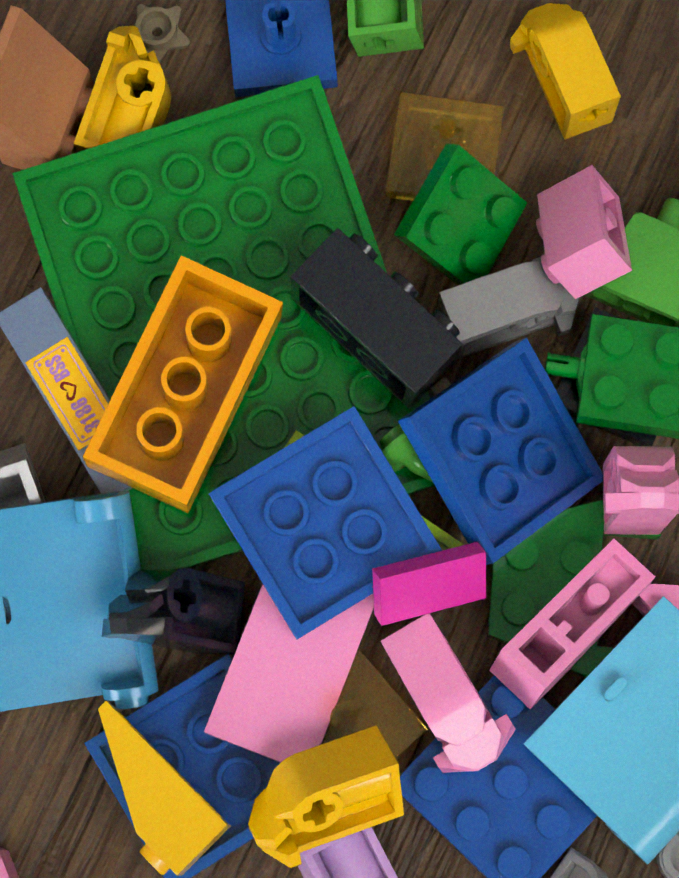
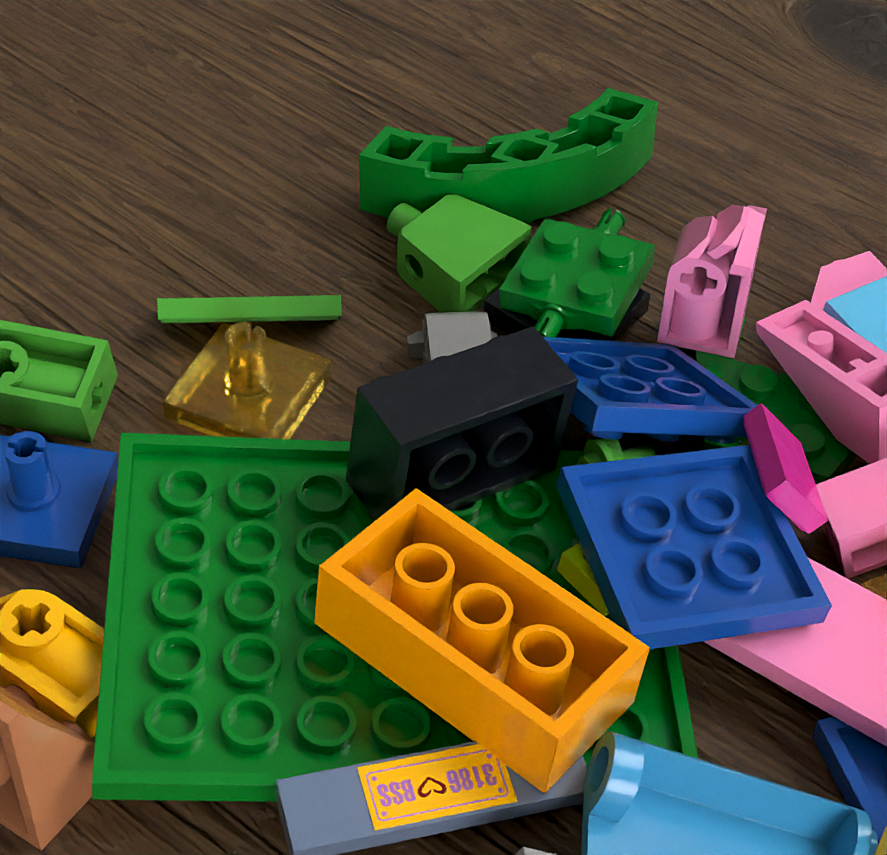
camera: 80 degrees left, 30 degrees down
(179, 611) = (767, 739): black piece -> none
(460, 216) = (330, 356): green plate -> none
(522, 118) = (249, 309): none -> bright green tile
(568, 67) = (204, 255): yellow piece -> none
(582, 233) = (407, 270): bright pink brick -> none

